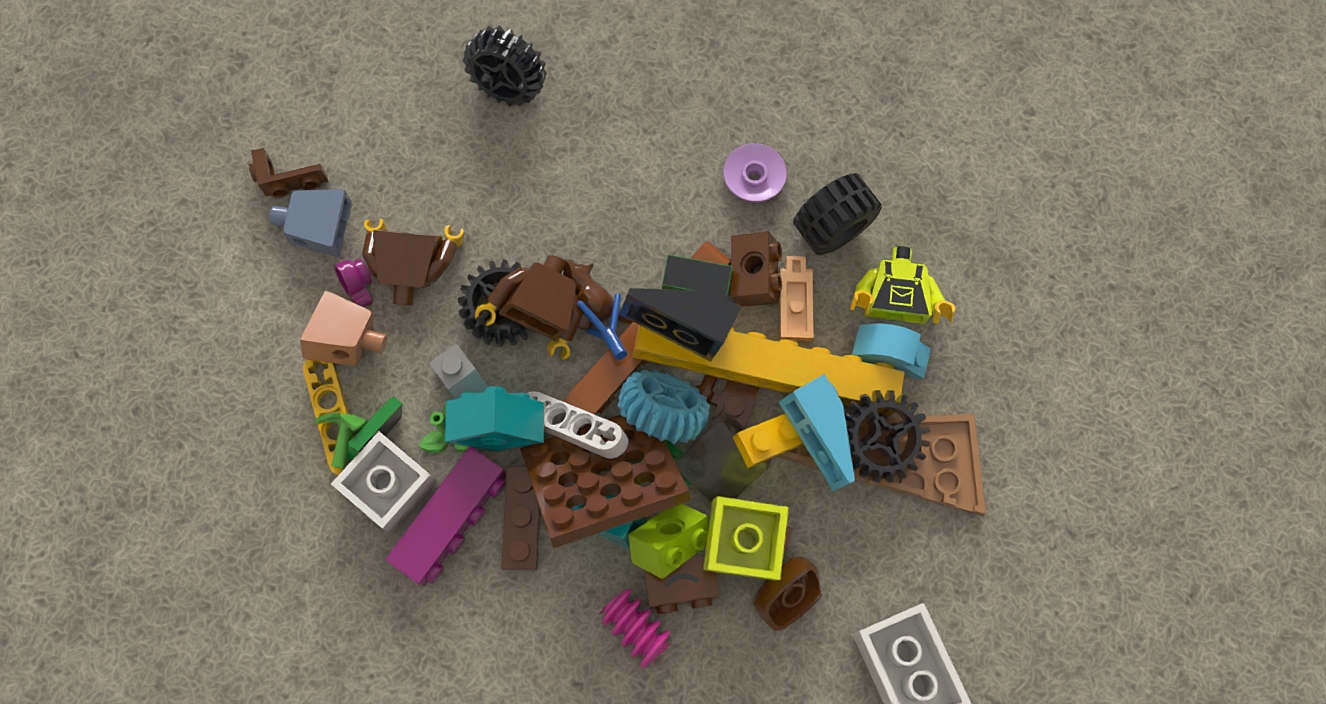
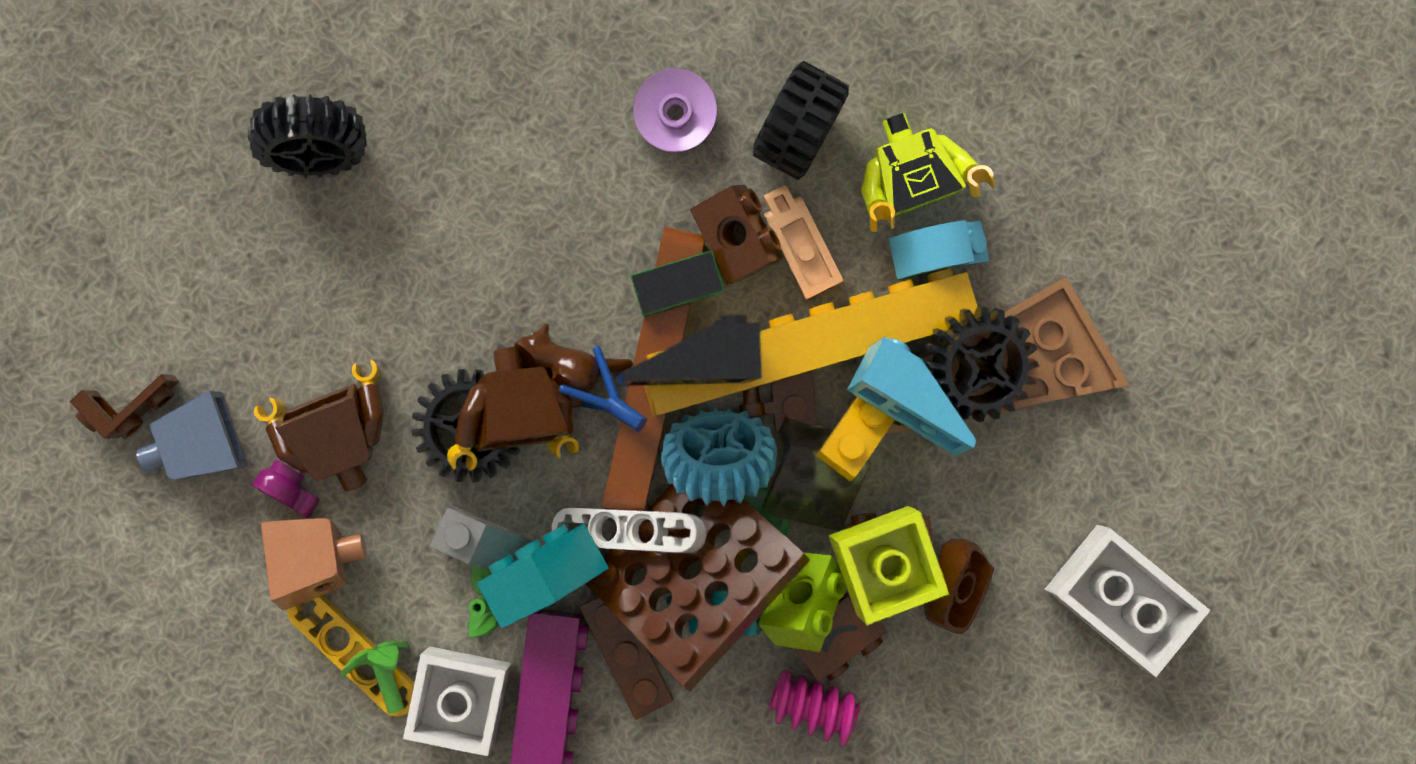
camera: 30 degrees left, 15 degrees up
(381, 422) = (412, 646): green tile -> none

